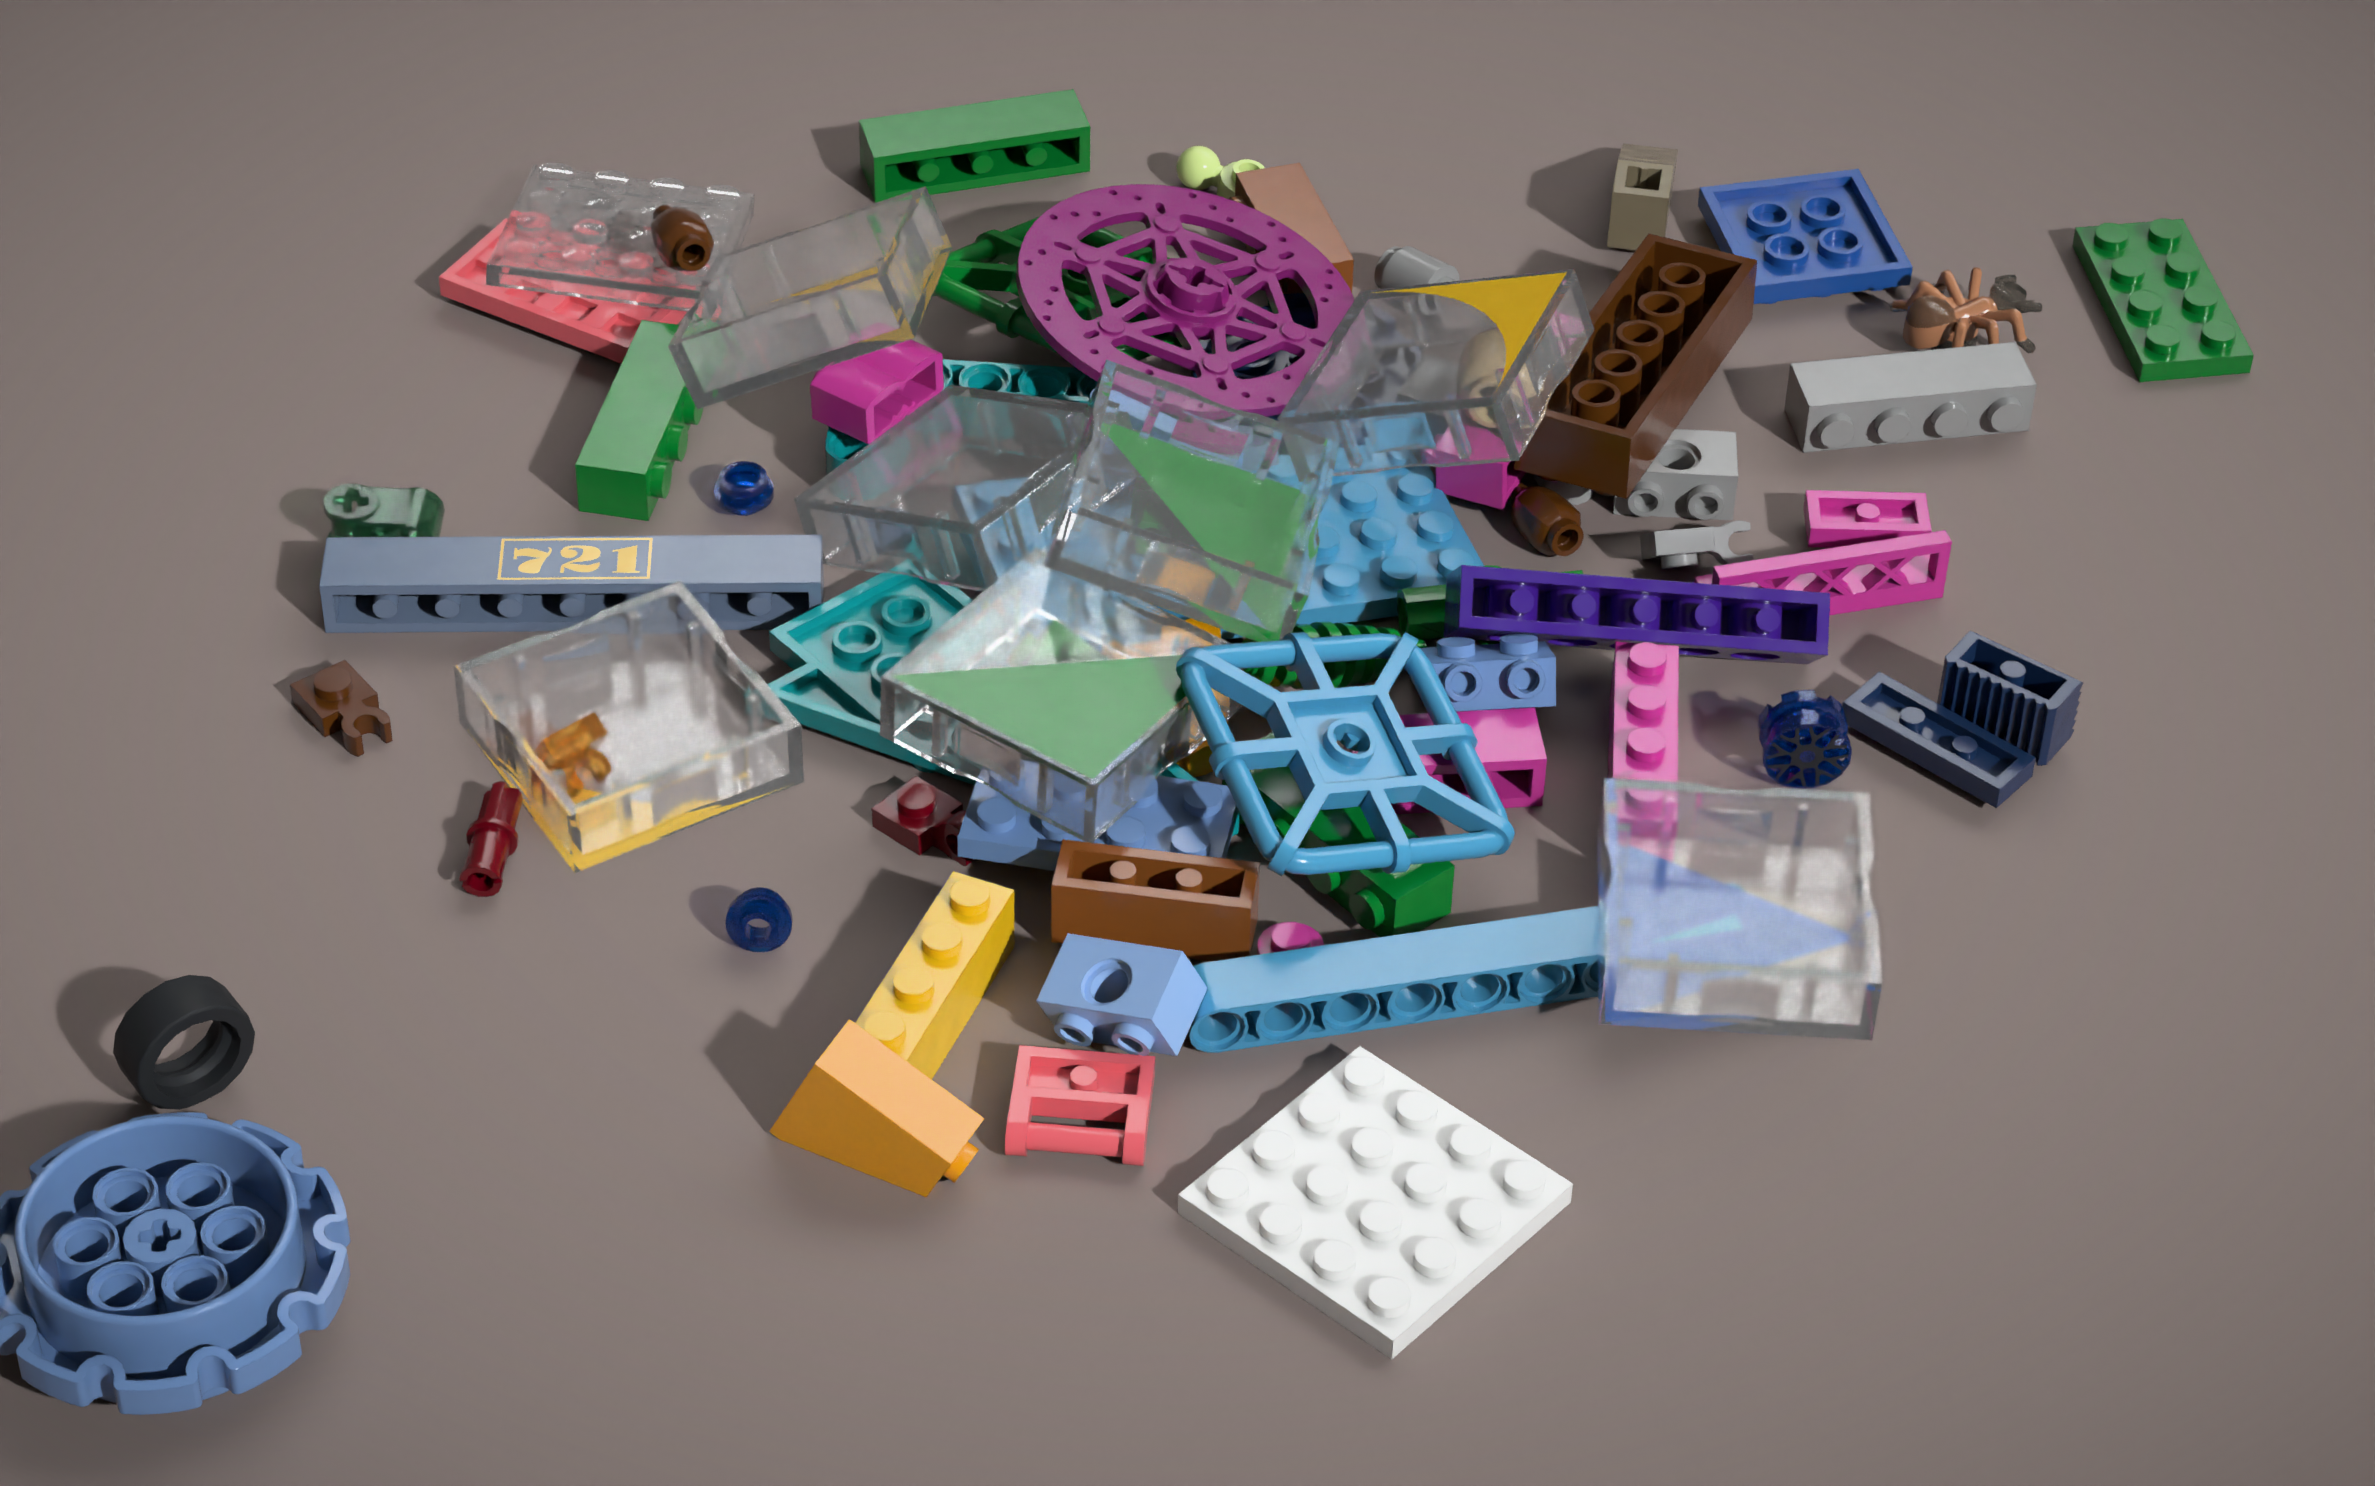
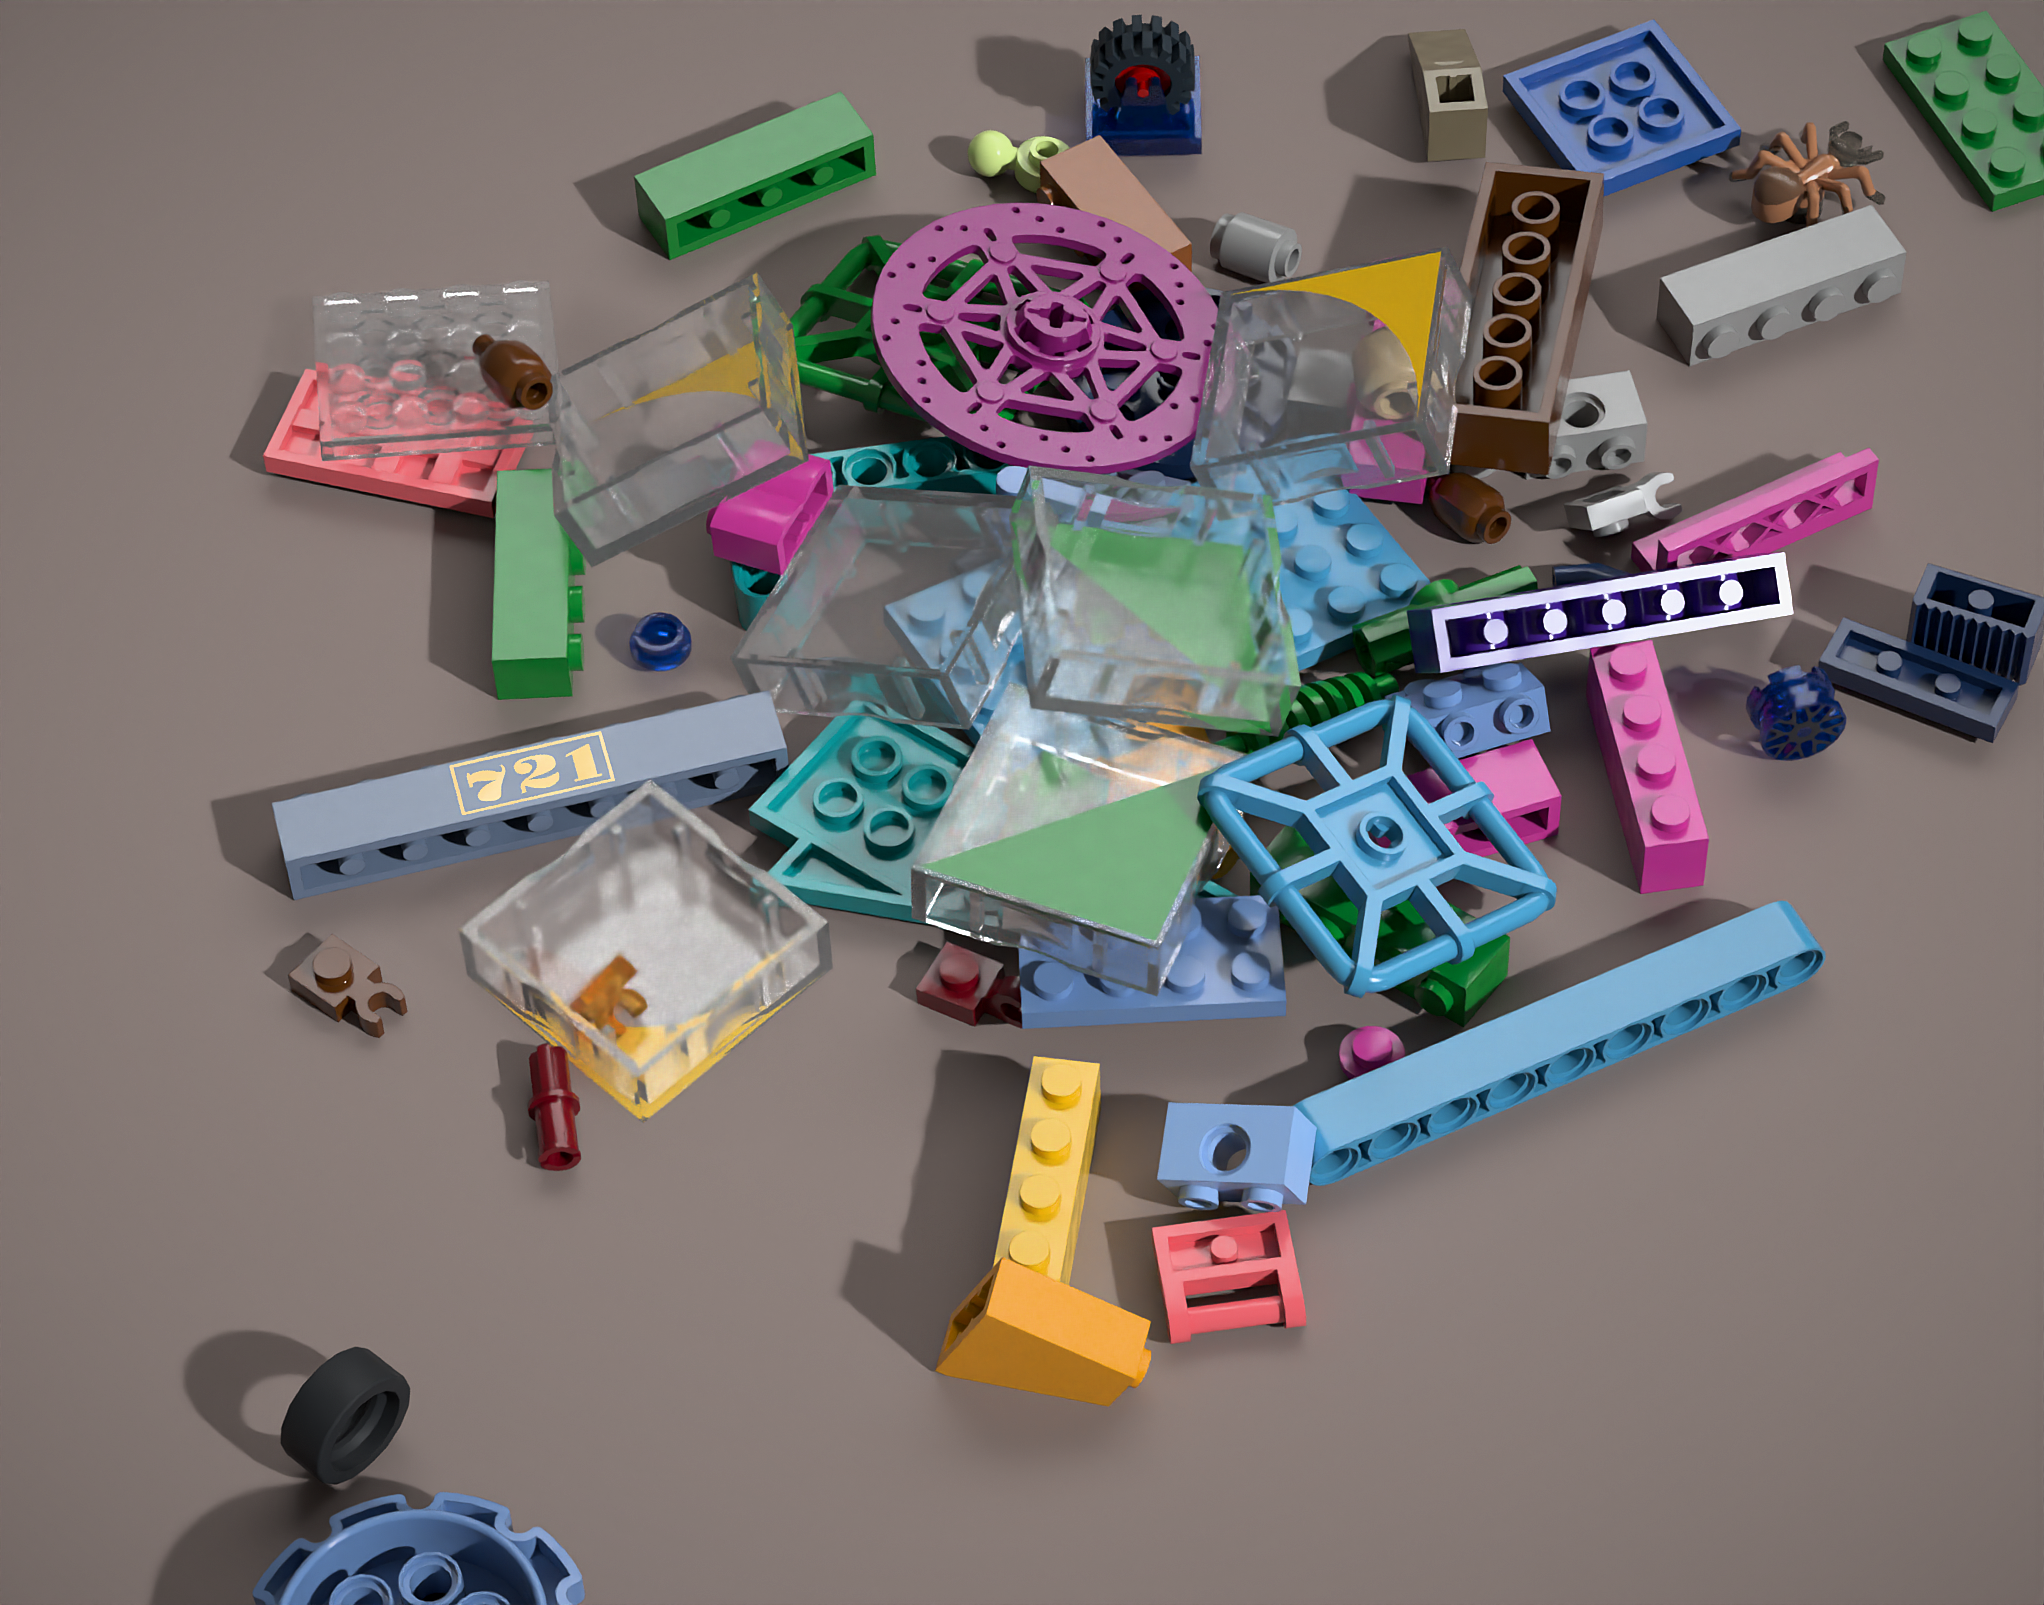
camera: 10 degrees left, 10 degrees up
(383, 511) = (313, 760): clear green piece -> none
(764, 905) = (850, 1141): clear blue plate -> none
(1156, 899) = (1234, 1040): dark orange brick -> none
(1357, 135) = (1144, 89): none -> plate
(1375, 1201) = (1536, 1313): white plate -> none
(1736, 910) = (1798, 933): clear tile -> none
(1863, 516) = (1778, 438): dark pink plate -> none

